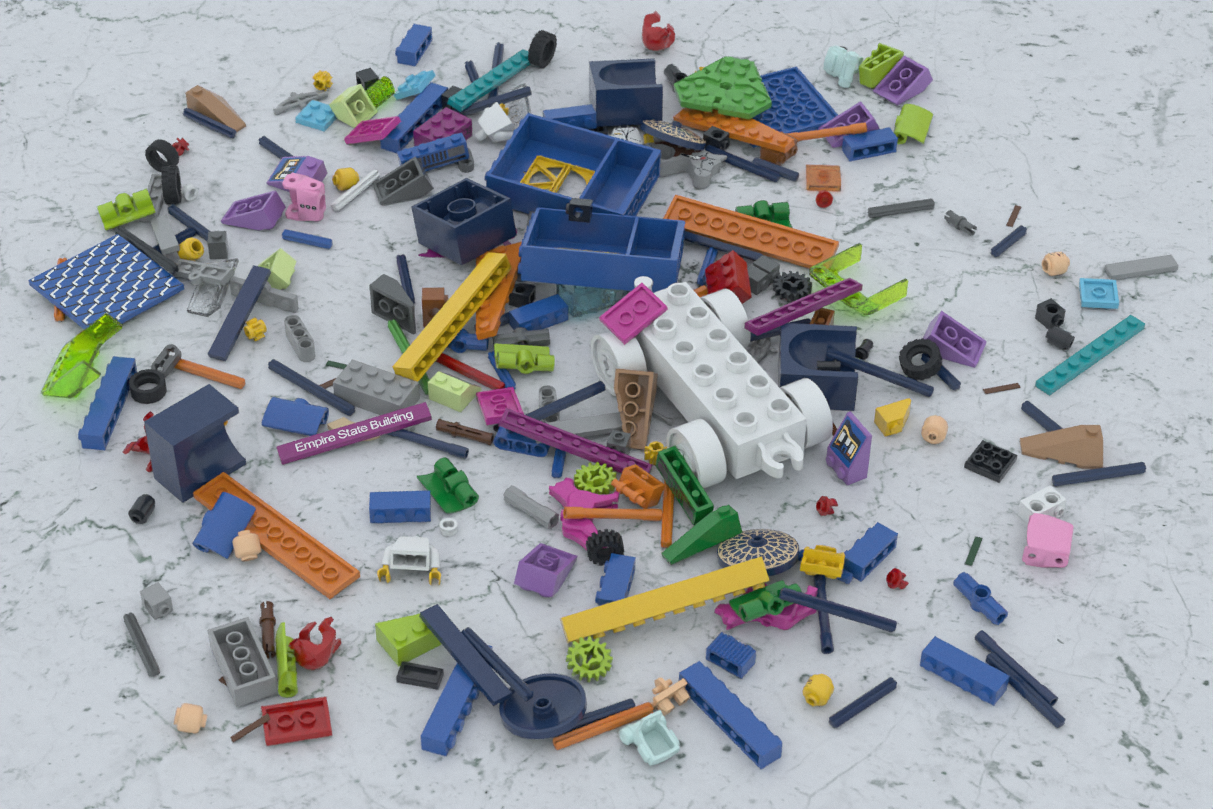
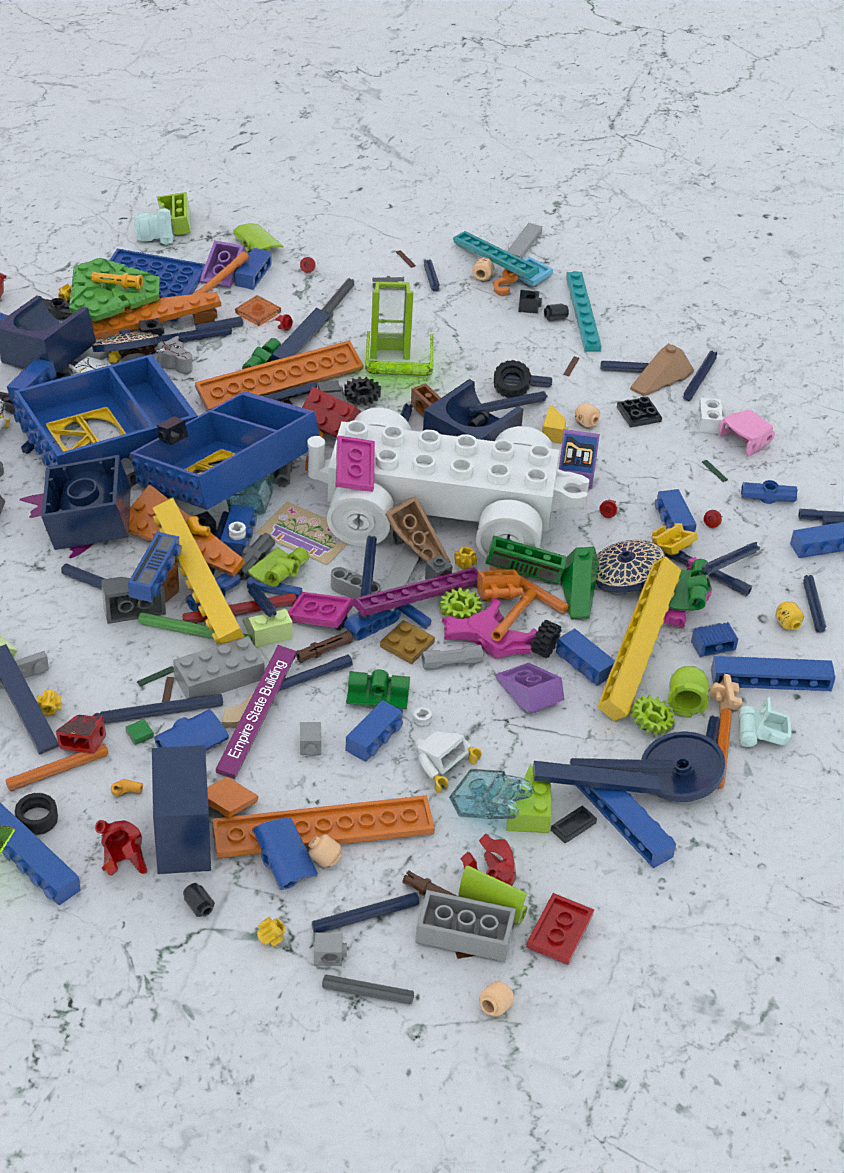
camera: 55 degrees left, 0 degrees up
(145, 558) = (271, 931): none -> yellow gear
(167, 361) = (15, 782): dark grey beam -> none
(210, 601) = (366, 912): none -> dark blue axle
(241, 361) = (82, 733): none -> red torso
(249, 728) = (541, 967): reddish brown piece -> none
(253, 468) = (230, 797): none -> orange tile
(277, 389) = (139, 731): none -> green tile
(299, 338) = (94, 681): light grey beam -> none
(356, 477) = (310, 738): none -> light grey brick
(384, 600) = (489, 794): none -> clear light blue brick
(419, 287) = (154, 567): none -> blue brick
(467, 367) = (261, 599): none -> dark blue axle
(498, 288) = (195, 528): none -> light orange arm
(524, 473) = (407, 641): none -> pearl gold plate
(526, 311) = (237, 530): none -> white bush
(575, 353) = (301, 528): none -> sticker
(639, 664) = (688, 691): none -> lime tile
(733, 86) = (125, 279): none -> light orange pin
(803, 306) = (416, 391): magenta tile -> none
(819, 215) = (301, 334): none -> dark blue tile
(873, 240) = (391, 318): none -> piece
(904, 81) = (207, 214): medium lavender slope -> none
(918, 168) = (307, 264): none -> red plate
(955, 340) = (497, 351): medium lavender slope -> none
(1067, 283) = (508, 278): none -> orange piece
(1076, 258) = (496, 255): none -> teal plate

